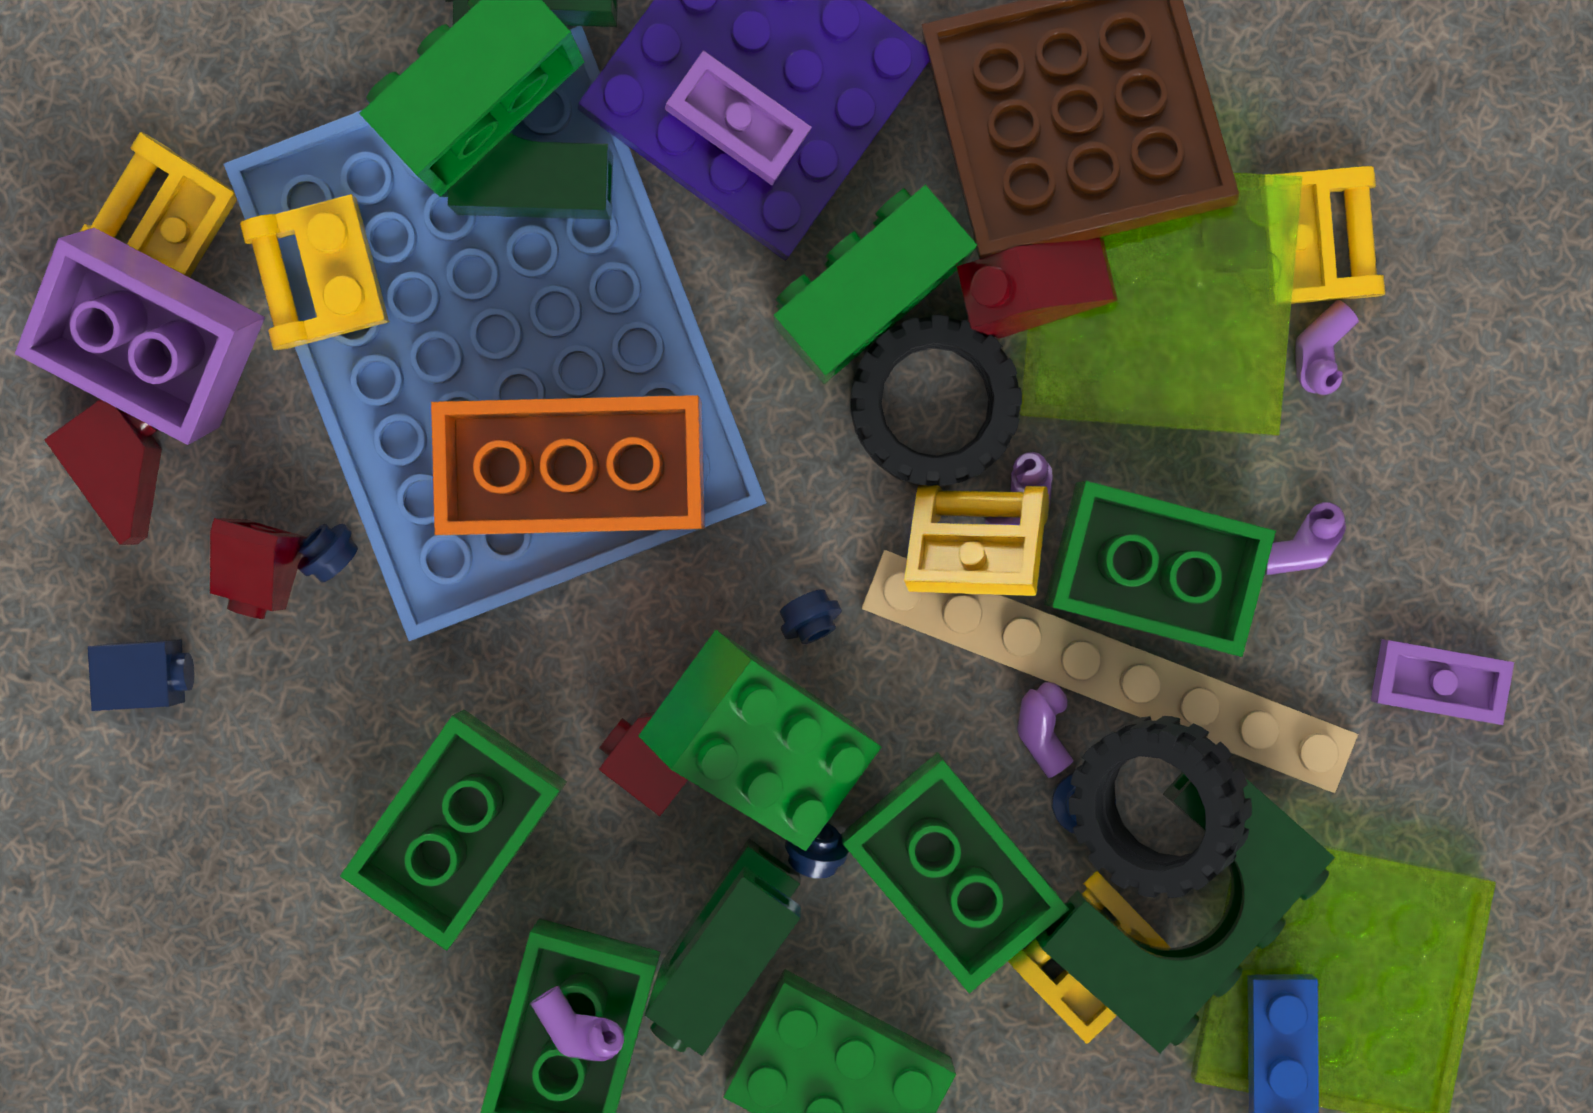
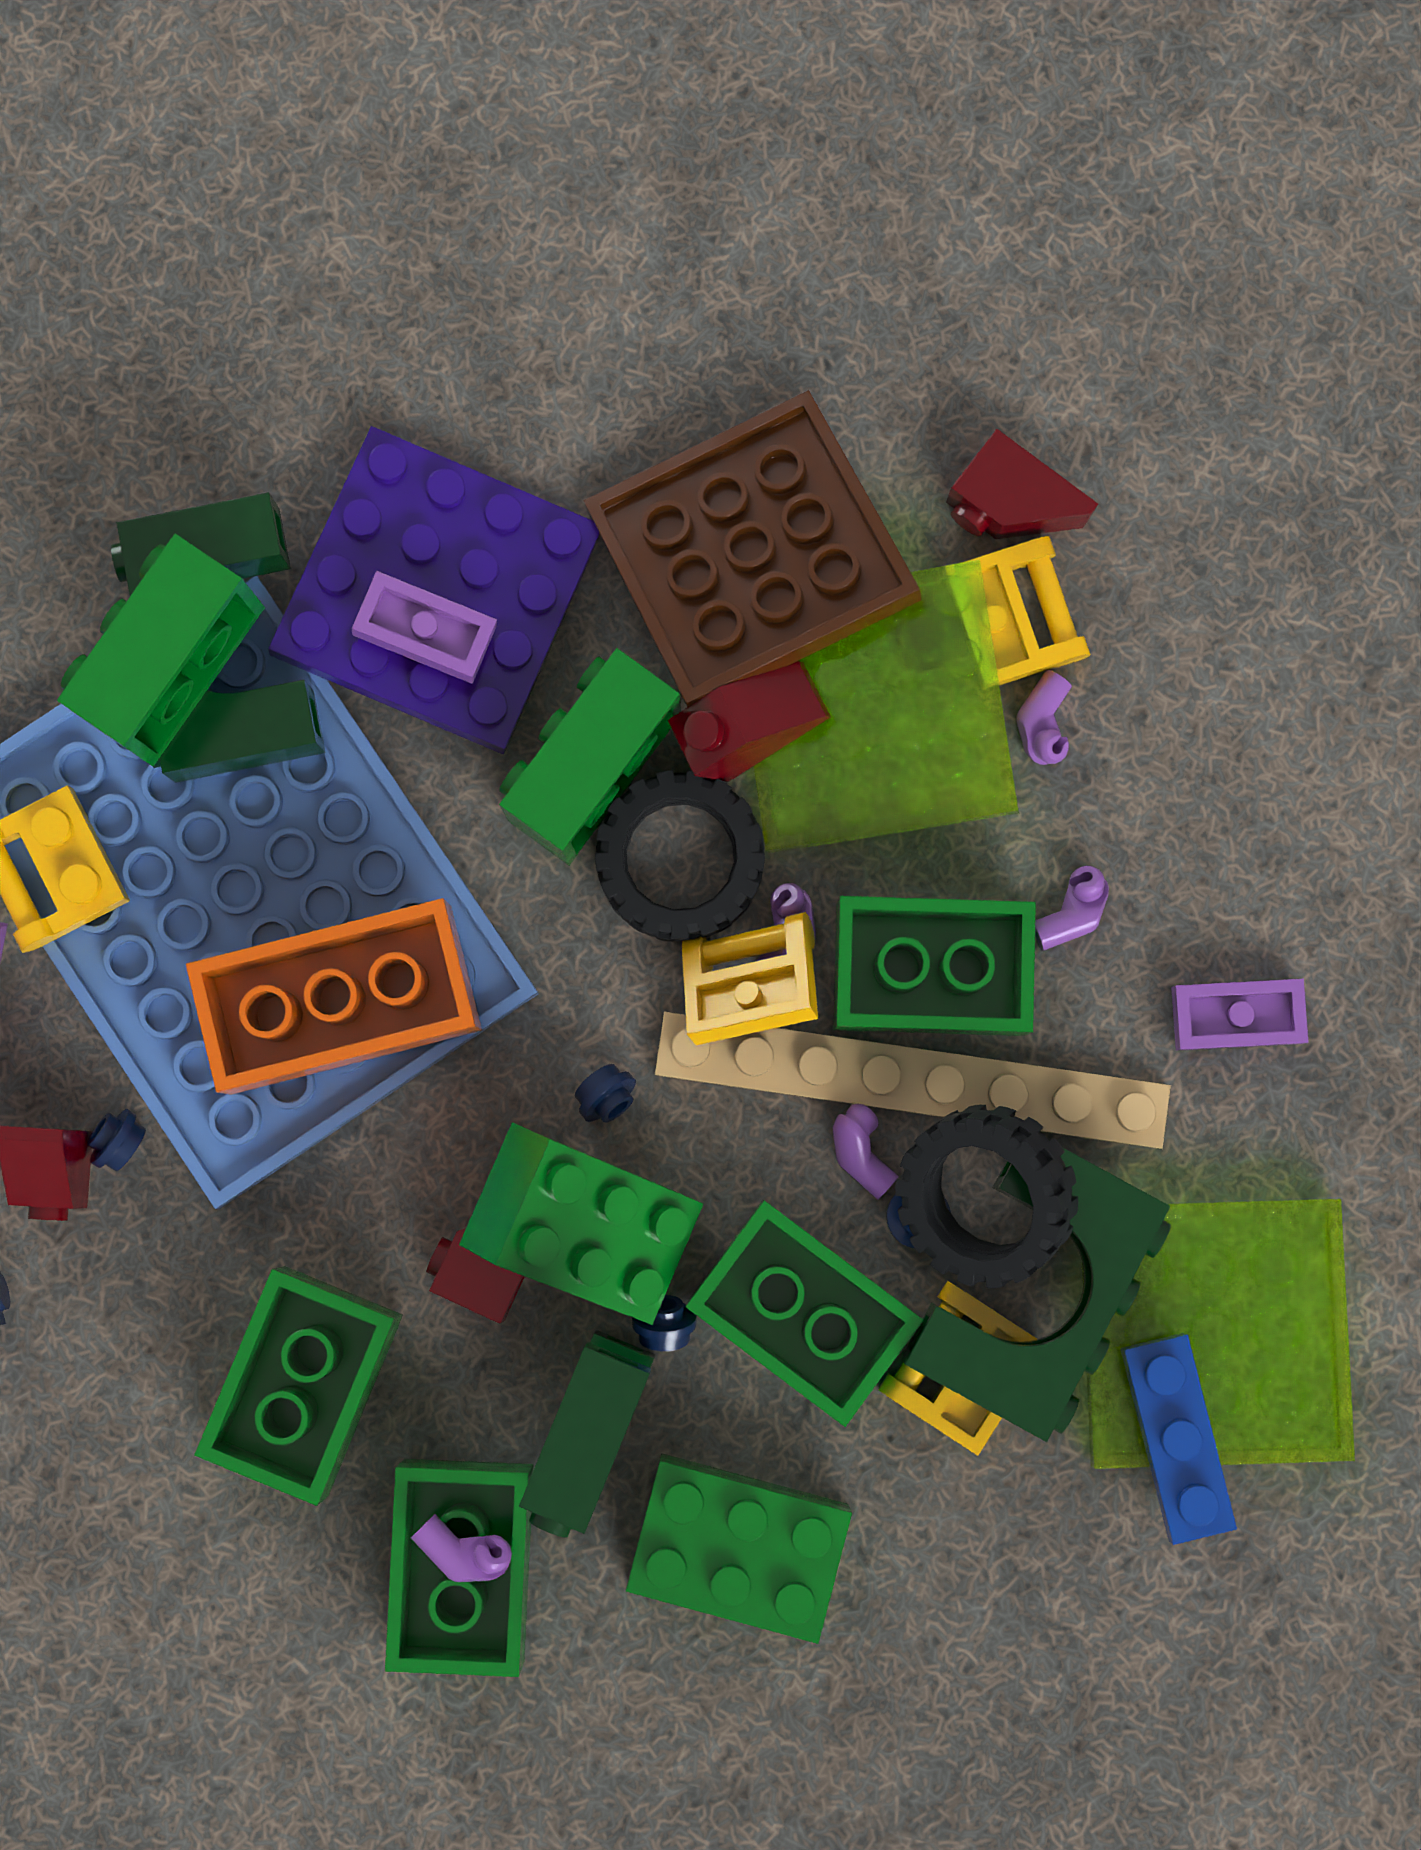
camera: 15 degrees left, 5 degrees down
(1352, 117) = (1015, 494): none -> dark red slope

